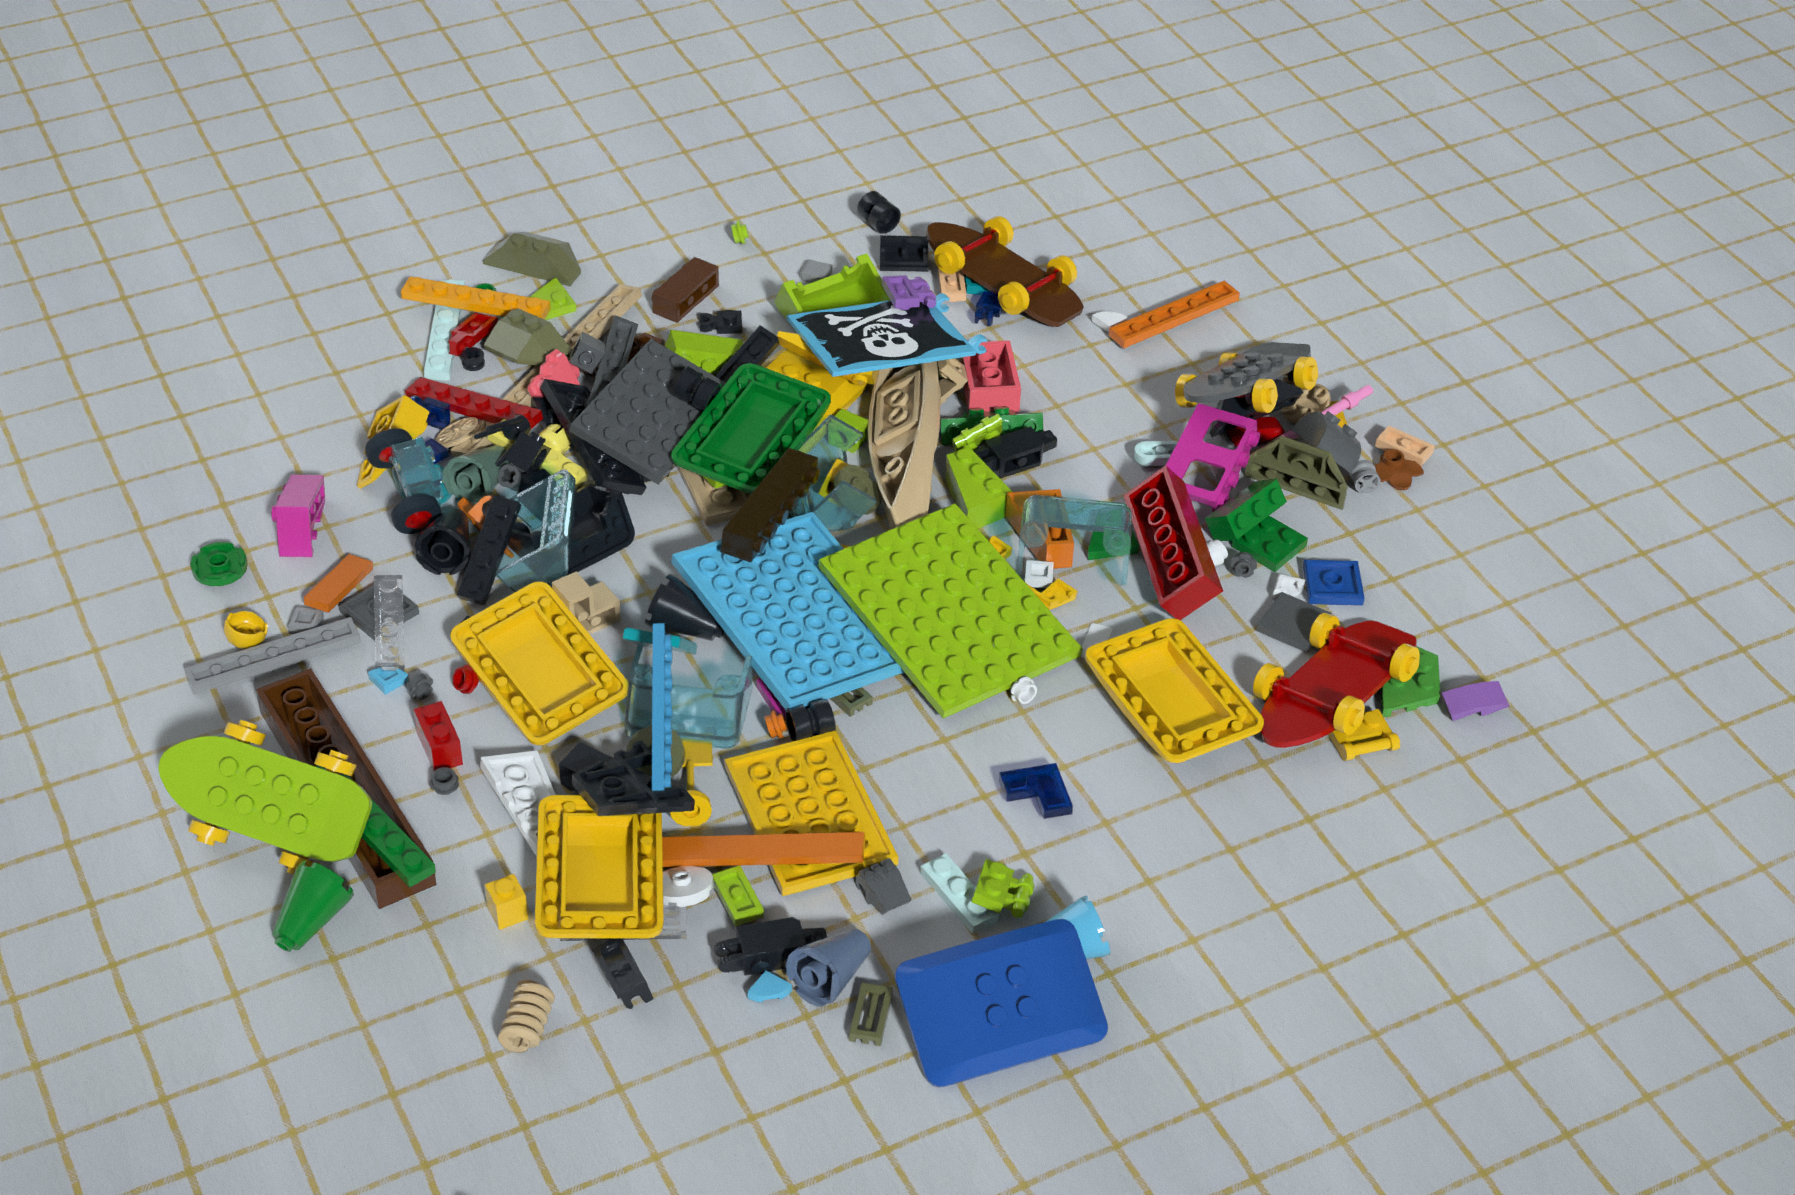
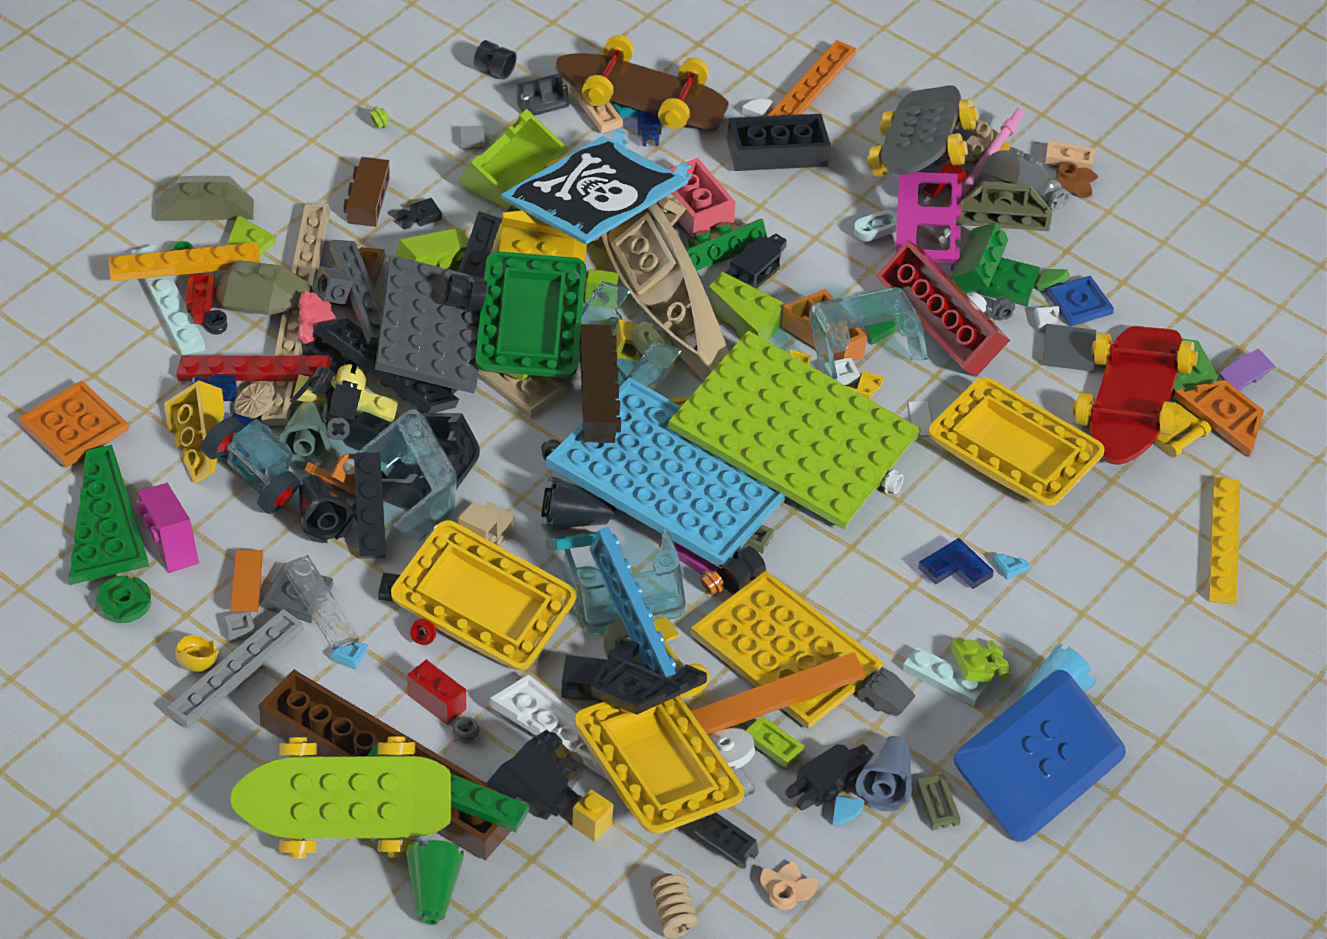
camera: 25 degrees left, 5 degrees up
(245, 503) = (106, 527): none -> green wing
(285, 405) = (73, 423): none -> orange plate
(419, 687) = (386, 652): dark grey plate -> none
(471, 841) = (541, 775): none -> black piece
(661, 1039) = (787, 883): none -> light nougat plate
(908, 293) = (590, 138): medium lavender plate -> none
(986, 430) = (720, 261): lime plate -> none
(1098, 809) = (1010, 566): none -> medium azure tile
(1105, 352) = (778, 142): none -> black brick
(1314, 550) = (1052, 277): none -> bright green tile
(1349, 860) = (1224, 540): none -> yellow plate
(1426, 733) = (1226, 412): none -> orange wing

